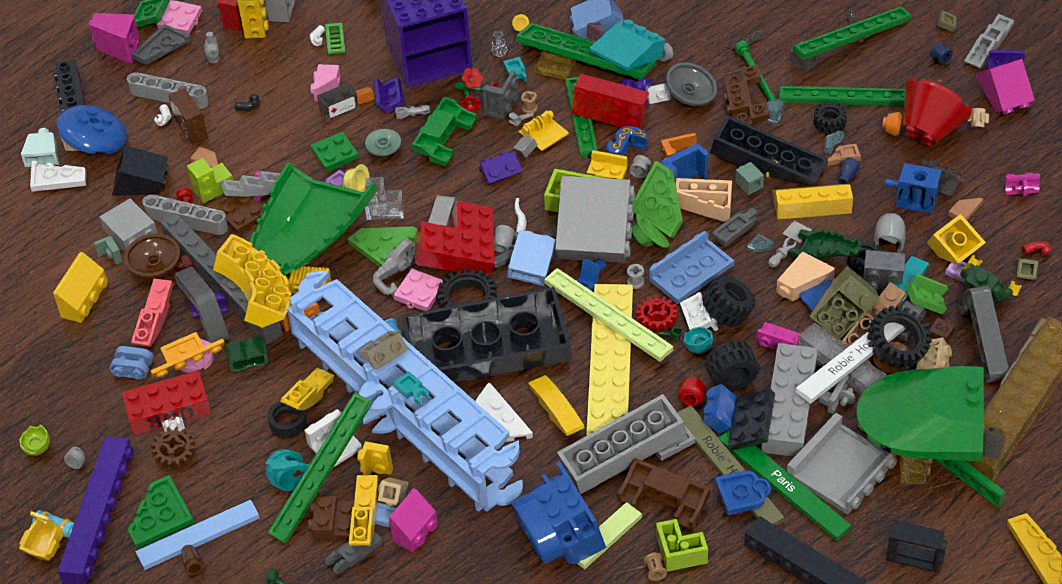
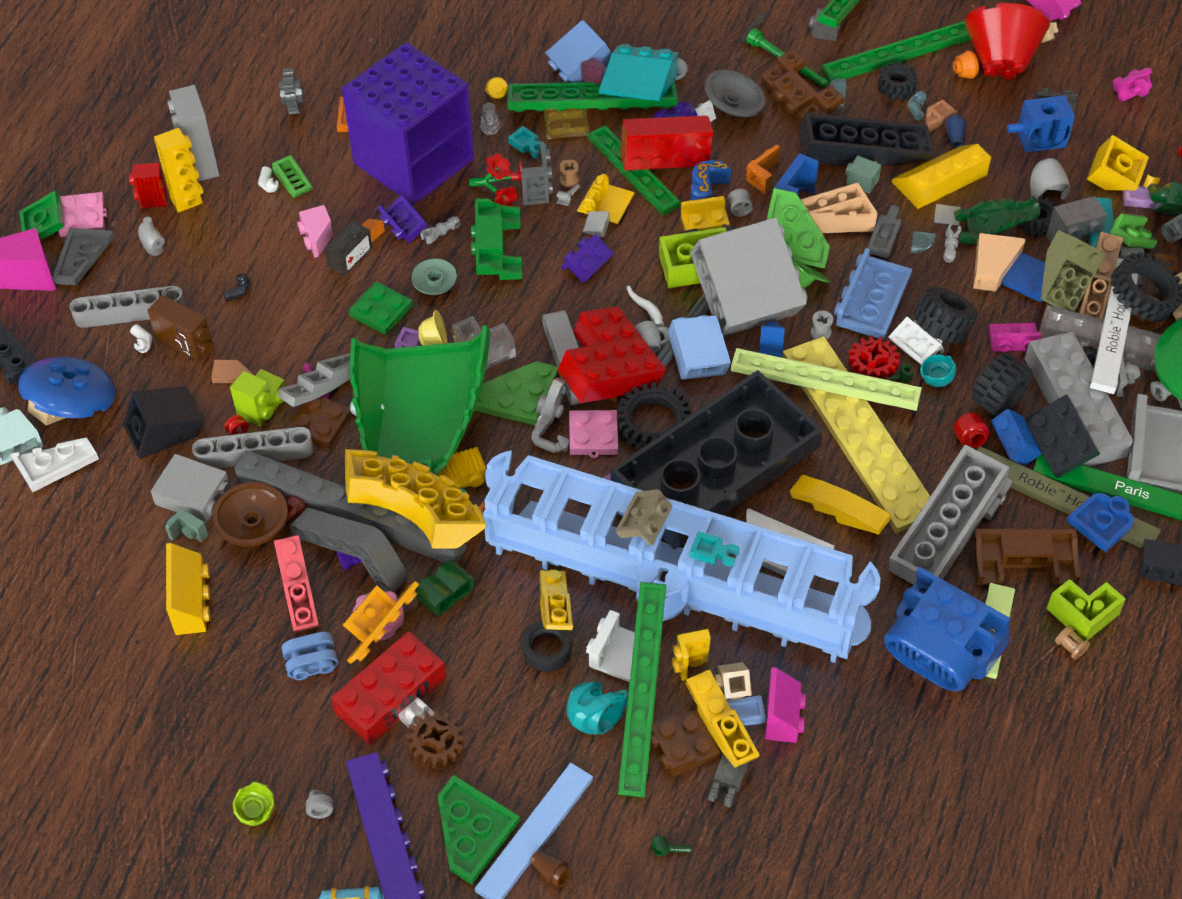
camera: 30 degrees left, 5 degrees up
(965, 208) = (1096, 130): nougat tile -> none

